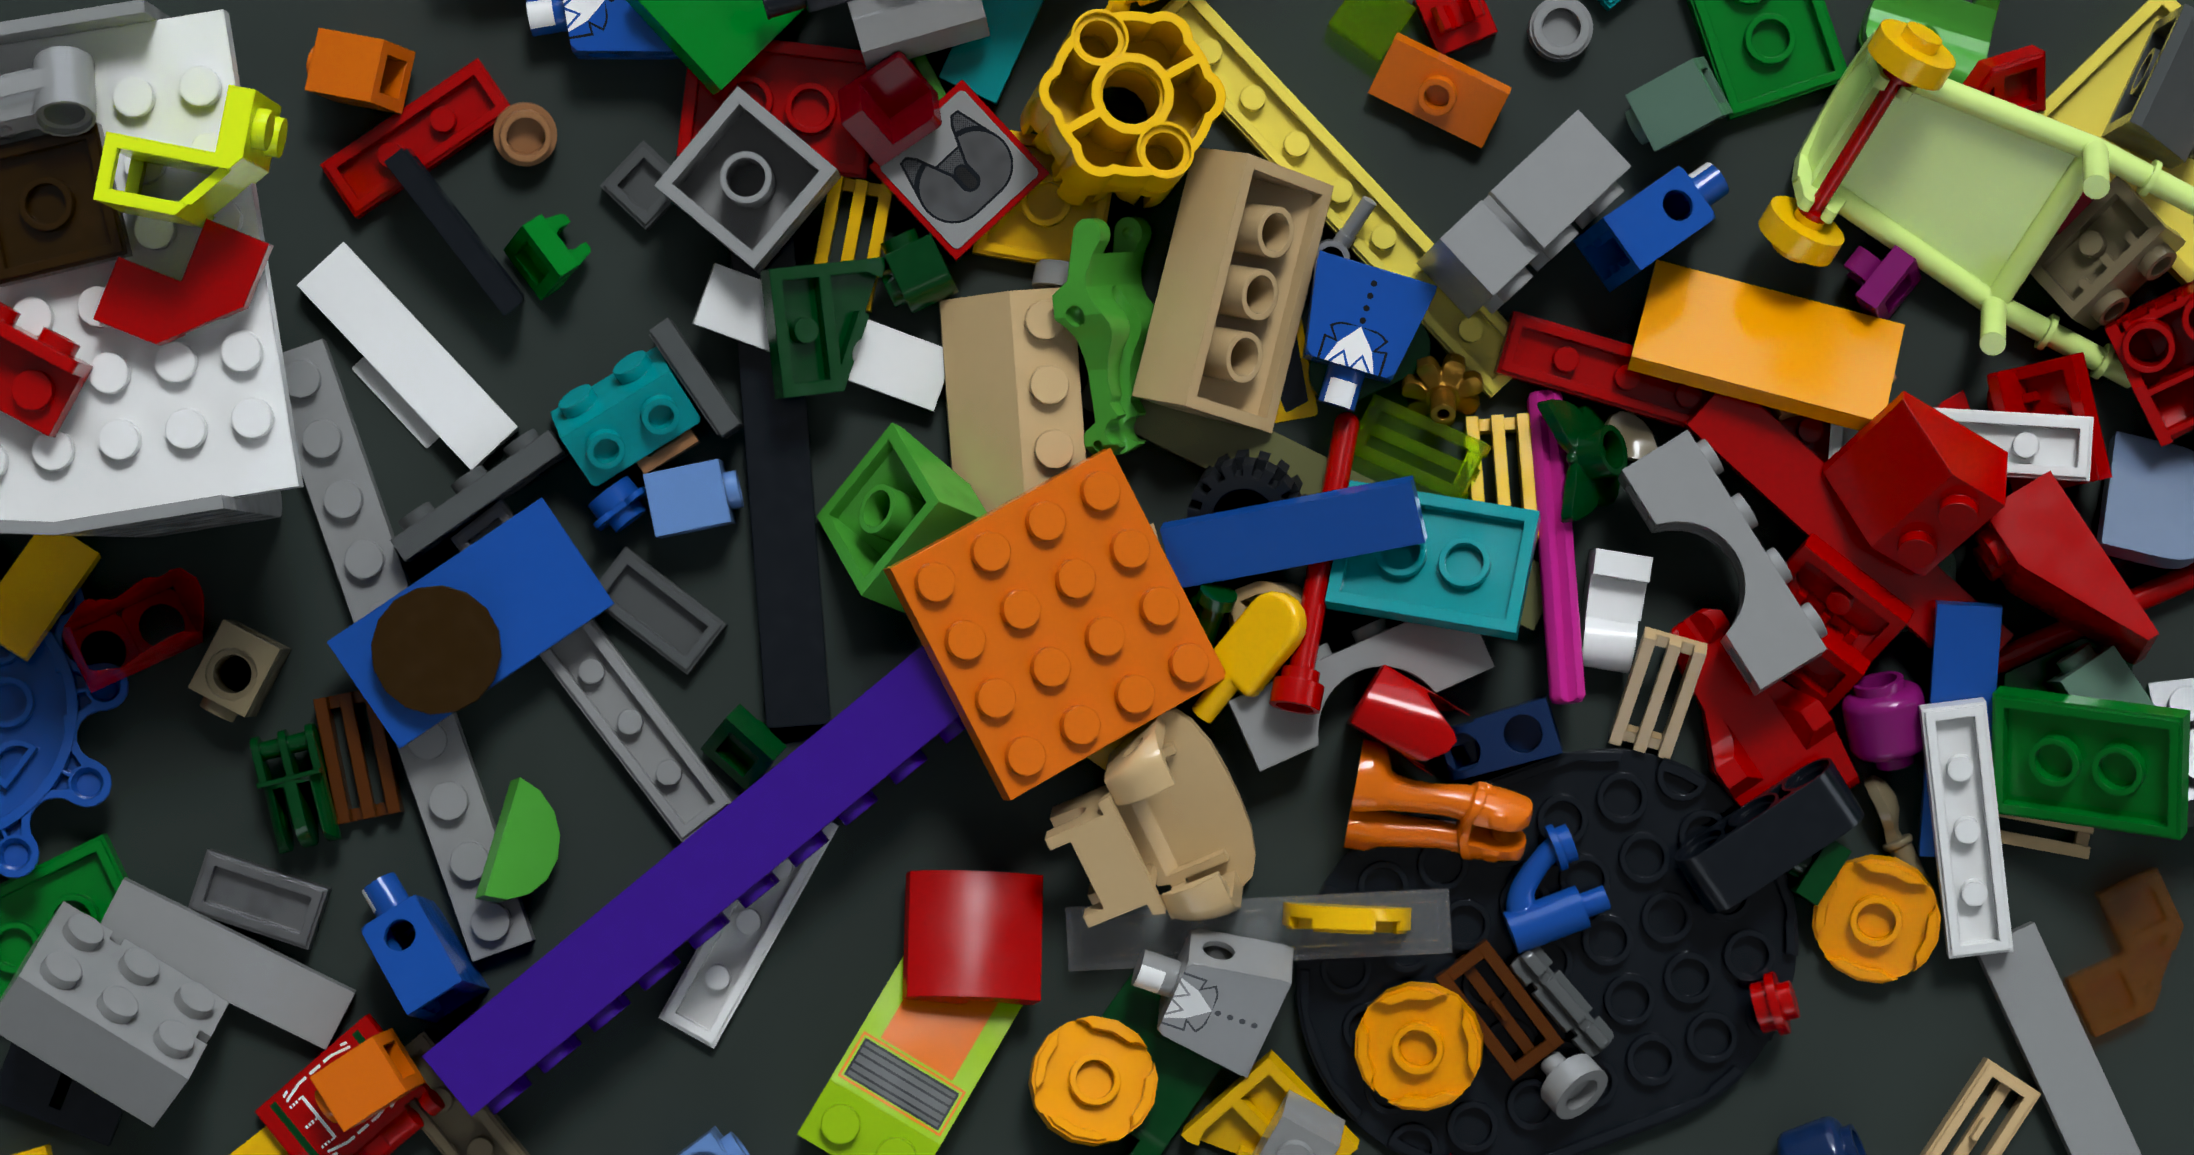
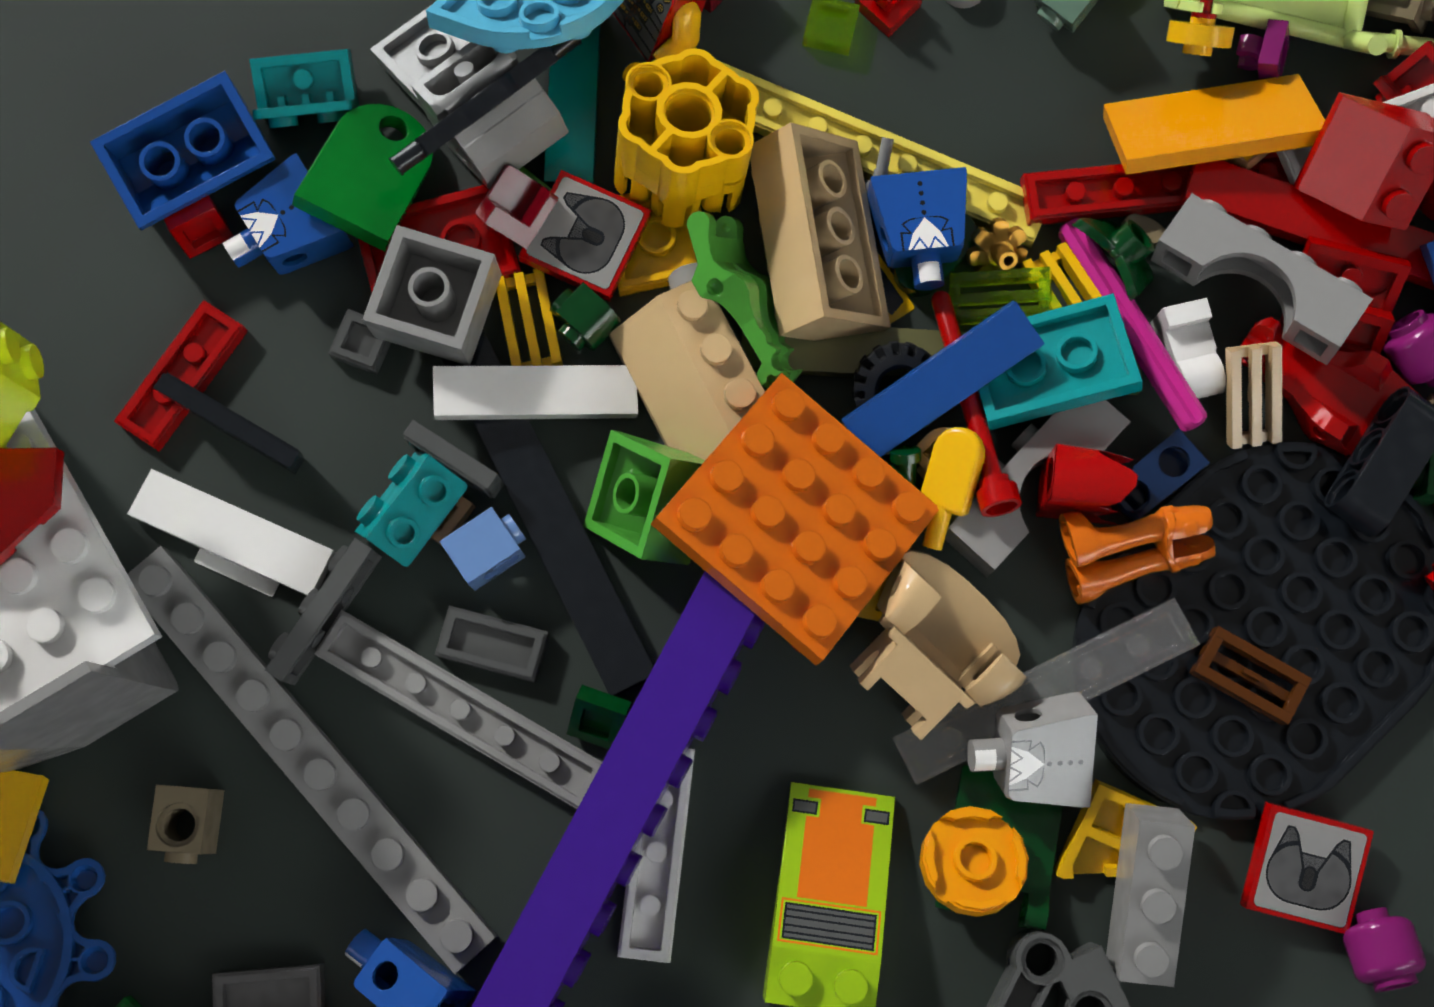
camera: 20 degrees left, 10 degrees down
(101, 616) = (55, 822): red piece -> none
(296, 788) = (261, 902): dark green arm -> none
(334, 761) = (287, 861): reddish brown tile -> none
(359, 70) = (116, 339): orange brick -> none
(436, 650) = (329, 736): dark brown tile -> none
(522, 846) = (458, 866): bright green tile -> none
(525, 134) = (258, 339): medium nougat plate -> none
(528, 582) = (350, 708): blue tile -> none
(543, 256) = (304, 417): green tile -> none
(618, 505) = (431, 575): blue plate -> none
(815, 322) = (524, 377): dark green wing -> none
(973, 936) = (833, 789): red slope -> none
(1346, 918) = (1108, 651): yellow tile -> none
(1419, 1046) = (1206, 727): light orange tile -> none
(1439, 90) = (901, 50): orange plate -> none
(1526, 217) = (1007, 97): light grey piece -> none
(1557, 915) = (1248, 597): blue plant -> none
(1562, 1001) = (1295, 649): dark grey axle -> none
(1571, 1084) = (1333, 706): light grey tile -> none
(1651, 223) = (1097, 63): blue torso -> none

